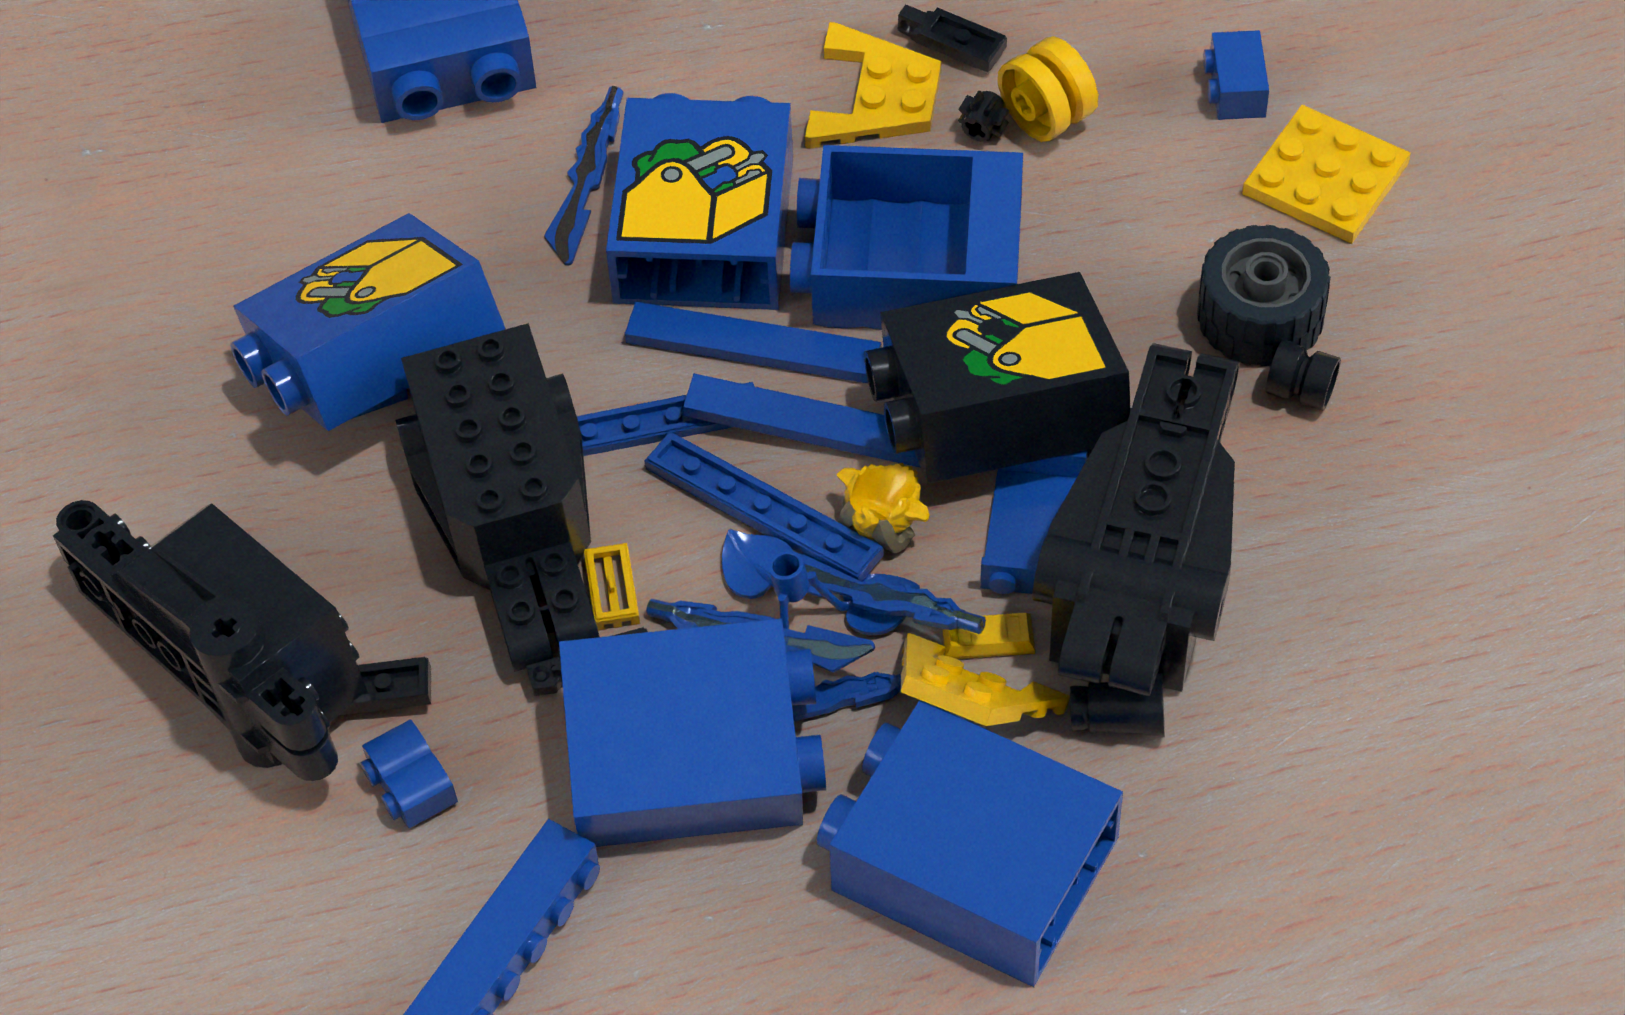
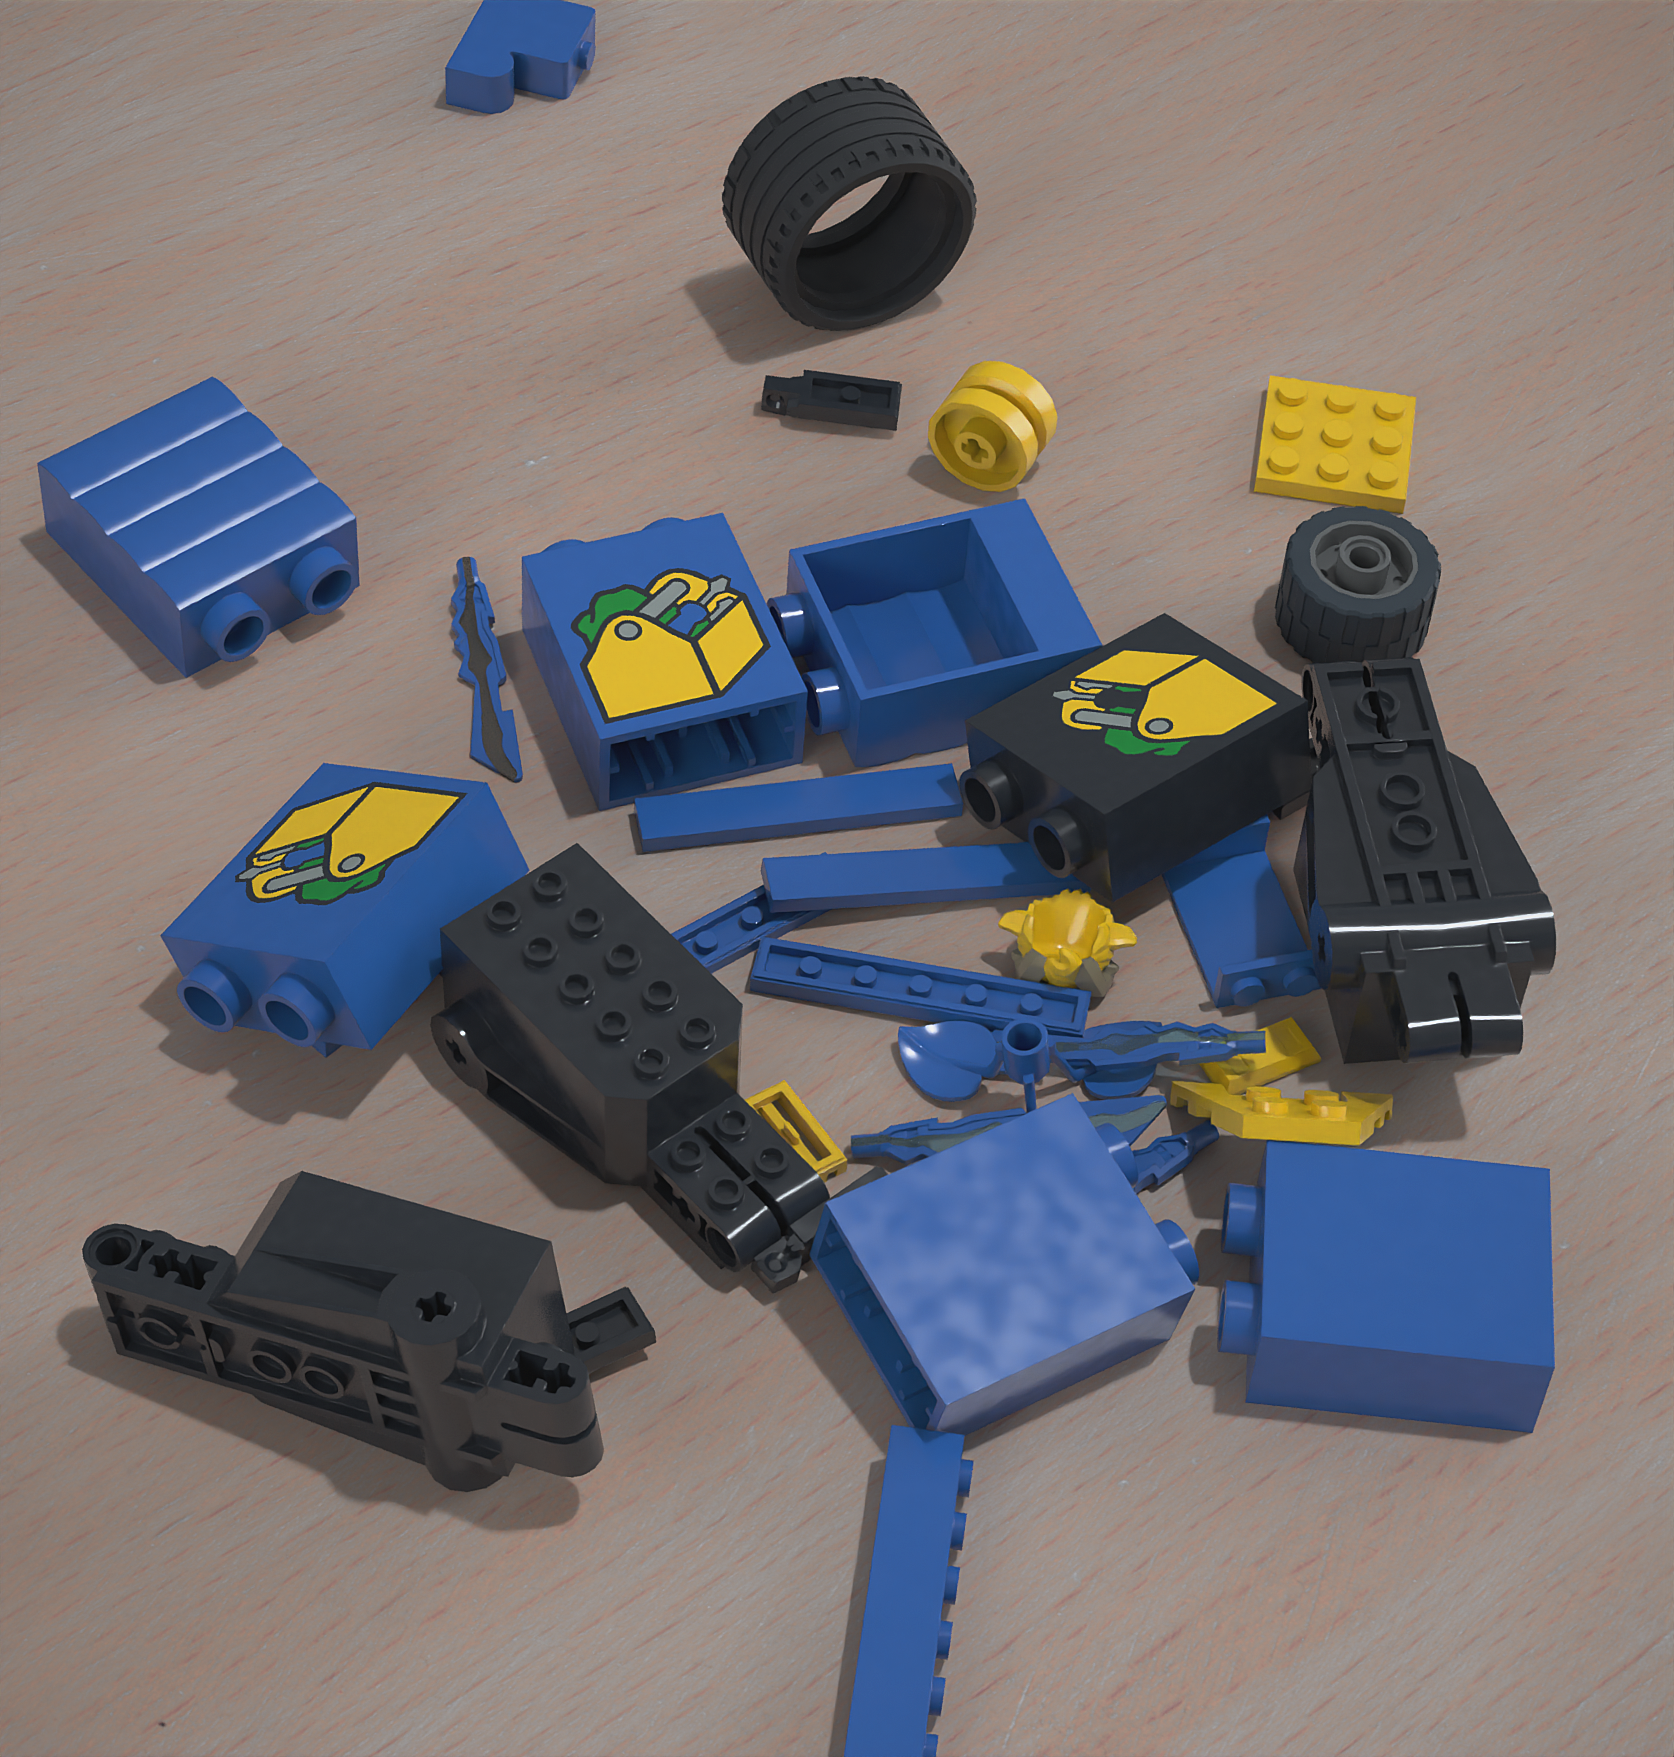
camera: 30 degrees left, 5 degrees down
(408, 773) = (678, 1433): blue brick -> none
(892, 95) = (796, 473): yellow wing -> none
(983, 115) = (926, 477): black gear -> none
(1117, 710) = (1458, 1090): black plant -> none
(1238, 75) = (1184, 360): blue brick -> none
(1299, 374) = (1457, 666): black wheel -> none

